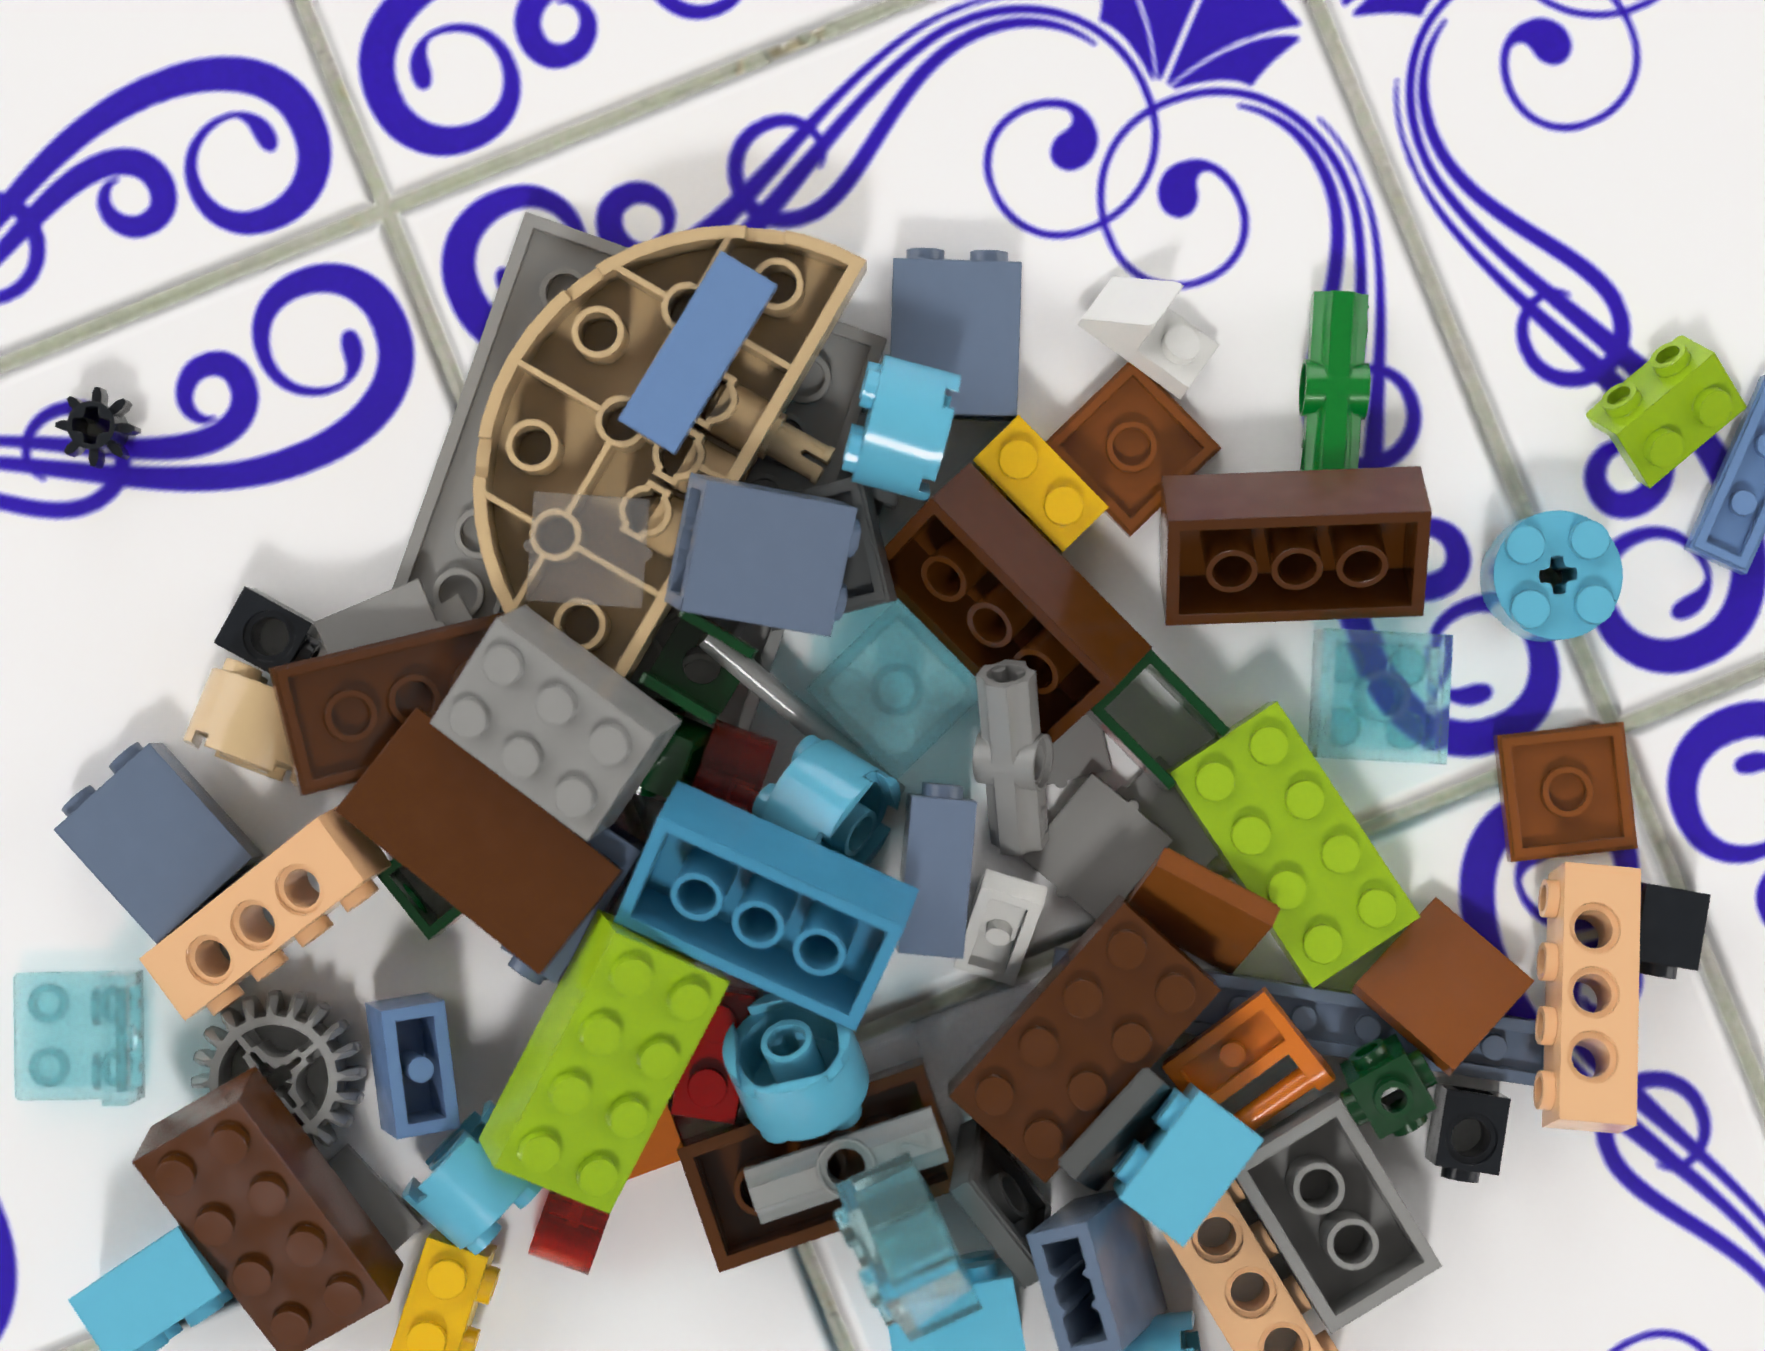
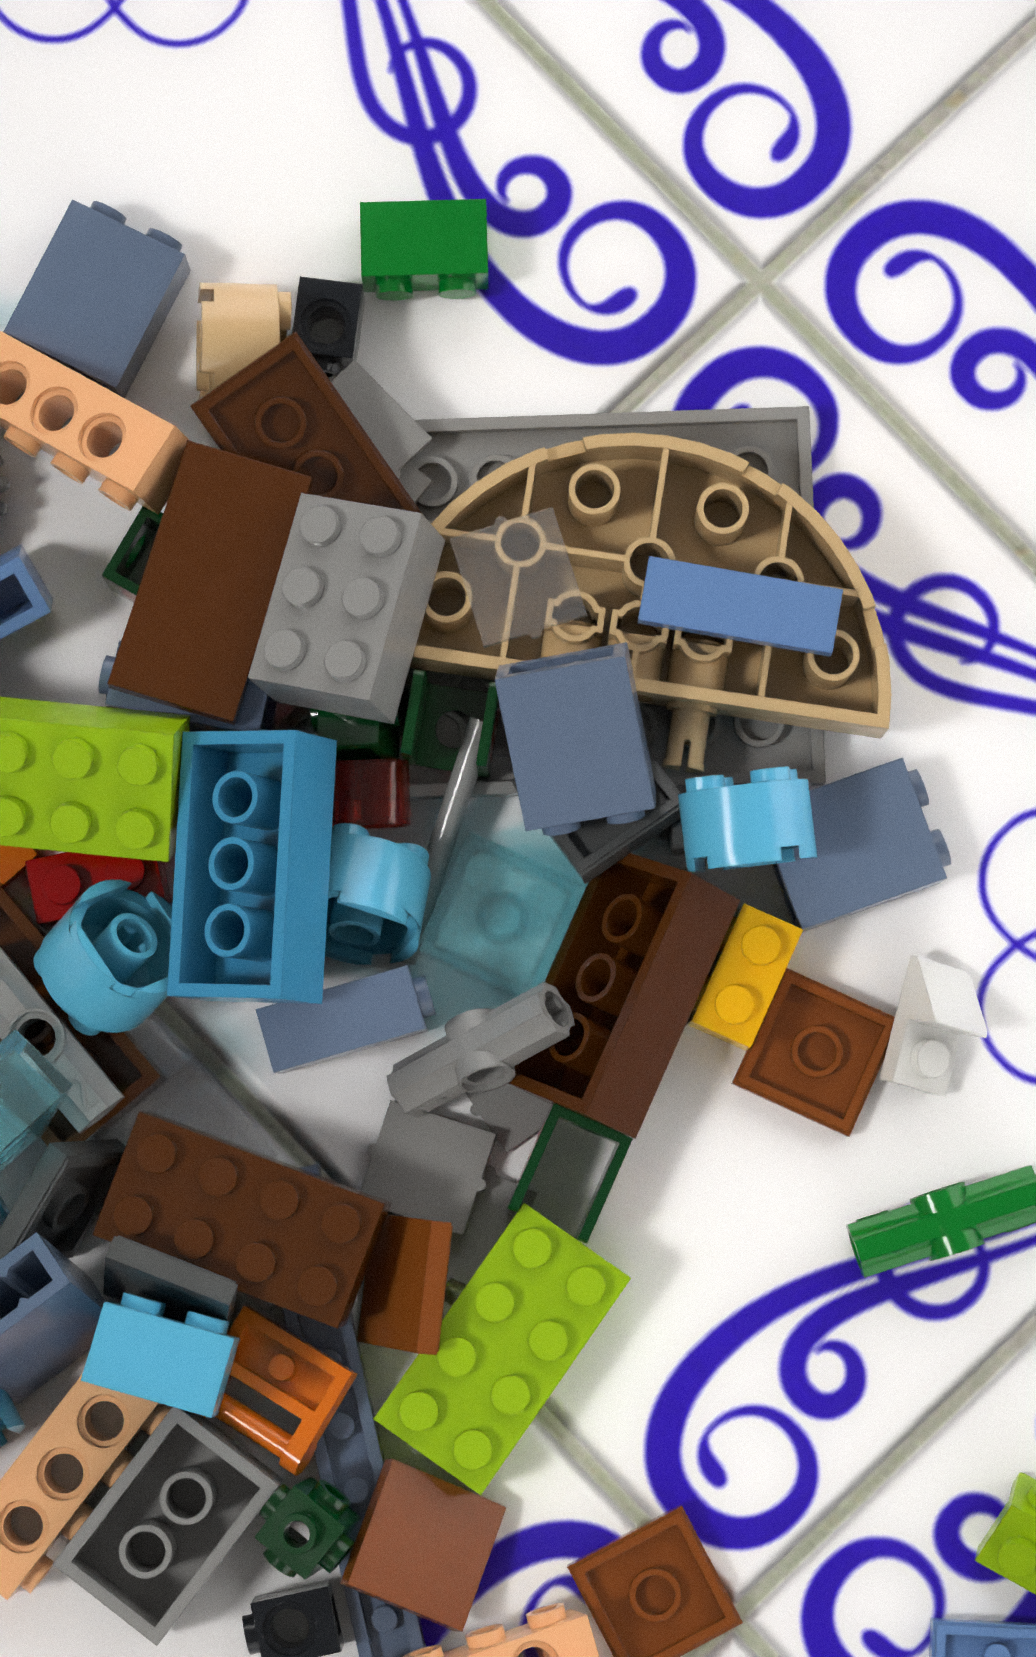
camera: 65 degrees right, 5 degrees down
(90, 413) = (468, 89): black gear -> none
(230, 513) = (424, 248): none -> green brick
(1000, 926) = (317, 1102): white slope -> none
(1294, 545) = (784, 1237): reddish brown brick -> none
(1380, 695) = (675, 1376): clear light blue brick -> none
(1571, 545) = (889, 1508): medium azure brick -> none

